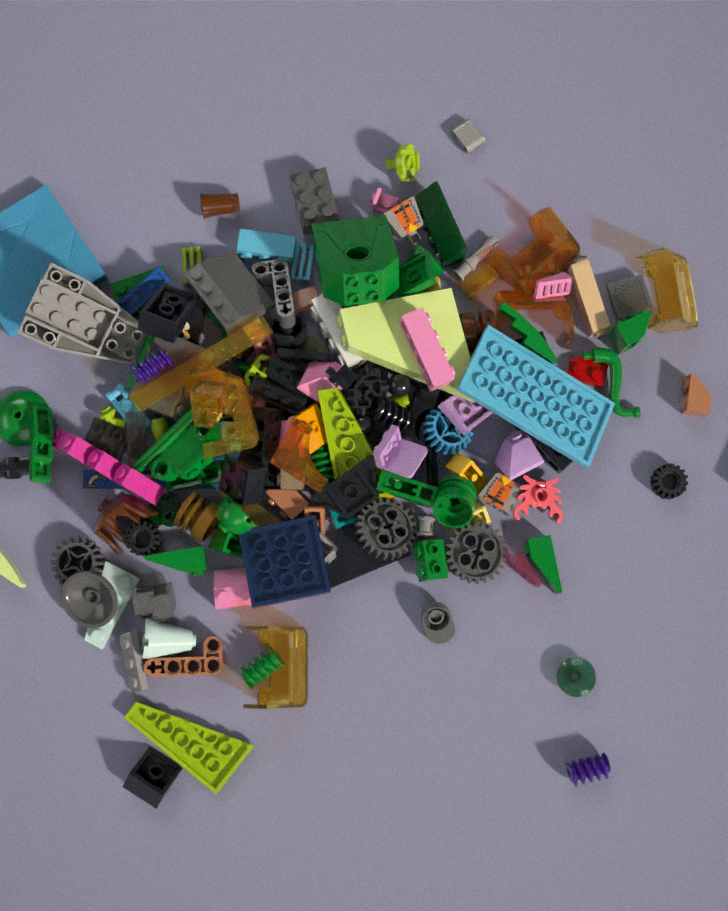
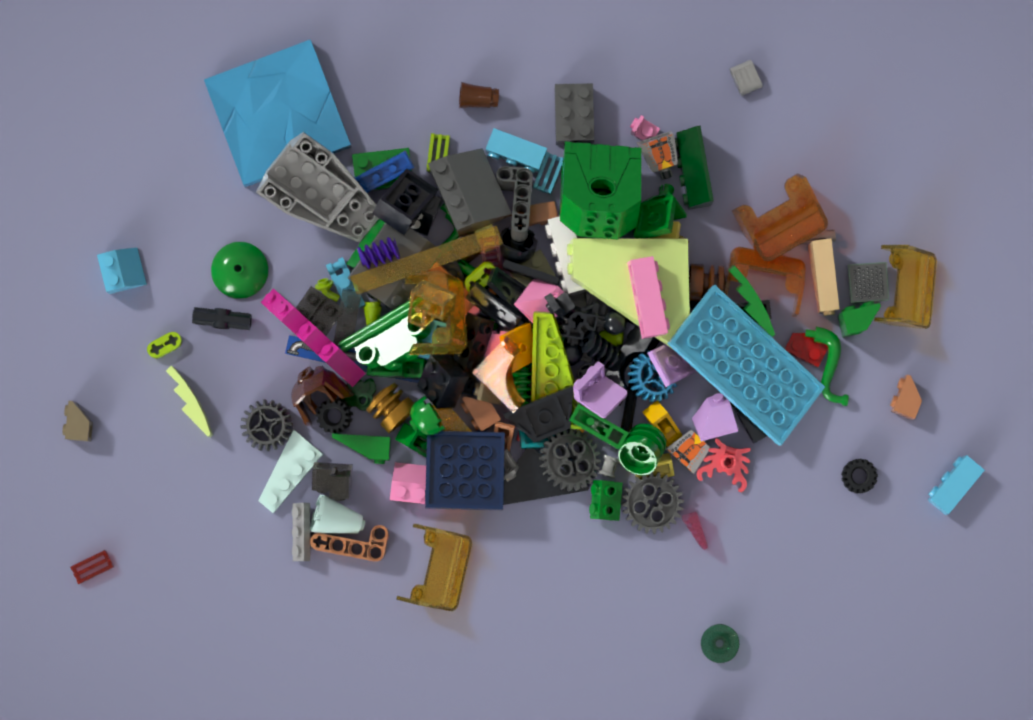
camera: 20 degrees right, 5 degrees up
(41, 444) = (254, 302): green slope -> none
(83, 605) = (265, 468): dark grey dish -> none
(152, 777) = (296, 644): black slope -> none
(198, 749) = (344, 627): lime wing -> none
(262, 667) = (421, 565): green piece -> none
(405, 163) = (673, 95): lime tile -> none
(437, 622) = (599, 561): dark grey cap -> none
(469, 263) = (715, 212): light grey pin -> none
(479, 281) = (720, 233): clear yellow plate -> none
(542, 556) = (715, 520): green slope -> none
(554, 285) = (798, 256): bright pink slope -> none

